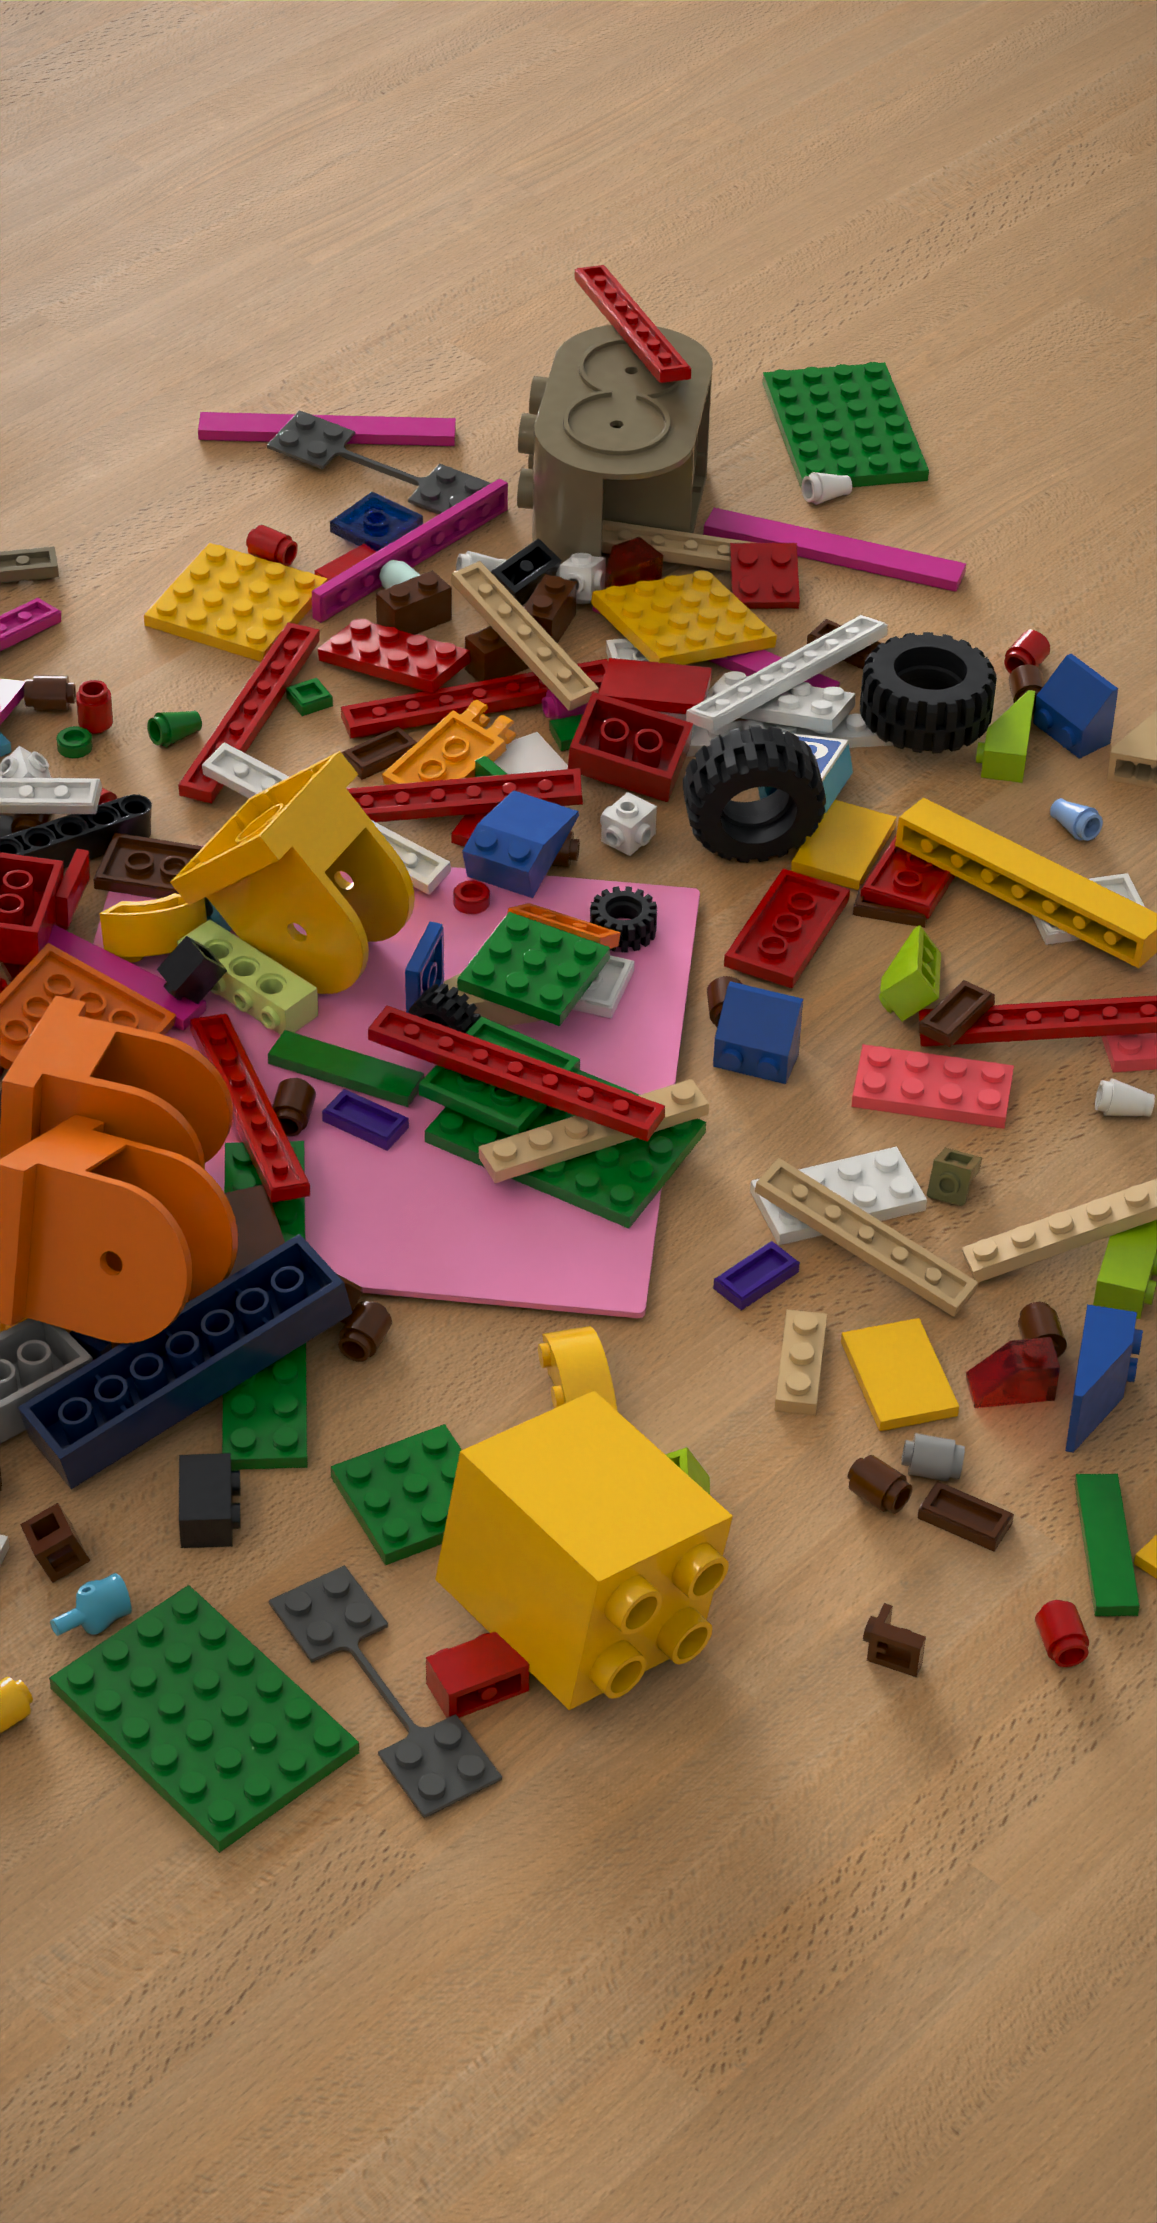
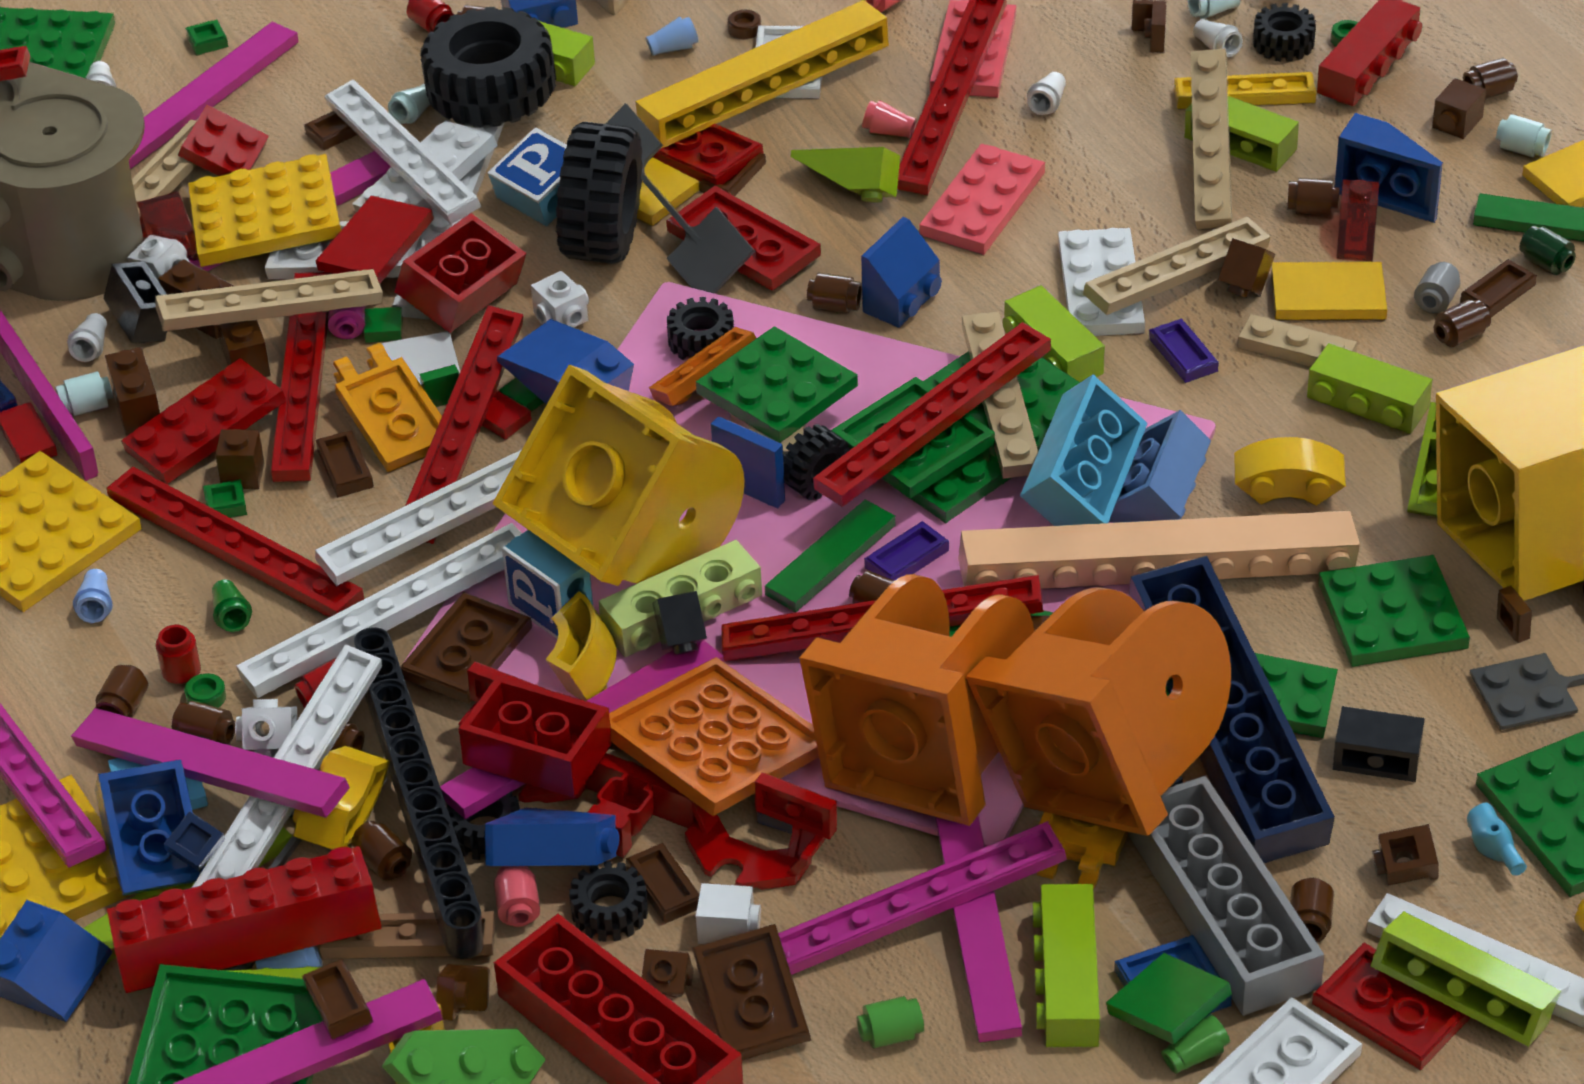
camera: 70 degrees left, 0 degrees up
(28, 735) = (204, 721): none -> reddish brown brick
(160, 651) = (93, 597): none -> light blue cone
(166, 798) = (381, 610): none -> white plate
(348, 682) = (240, 457): none -> reddish brown brick
(414, 1287) = (1116, 551): none -> light nougat brick
(421, 1585) = (1514, 614): none -> reddish brown tile
(504, 1198) = (1084, 456): none -> medium azure brick
(524, 1270) = (1162, 471): none -> medium blue slope
(722, 1168) = (1072, 344): none -> lime brick
(737, 1421) = (1369, 388): none -> lime brick
(849, 812) = (710, 249): none -> dark grey hinge
(886, 1290) = (1246, 268): none -> reddish brown brick
(930, 534) = (206, 37): none -> green tile
(952, 1176) = (1106, 201): olive bracket -> none
(956, 1013) = (918, 152): reddish brown tile -> none
(1016, 984) = (886, 120): none -> coral cone
(1038, 1543) = (1548, 250): none -> dark green brick
(1134, 863) = (744, 24): none -> reddish brown tile

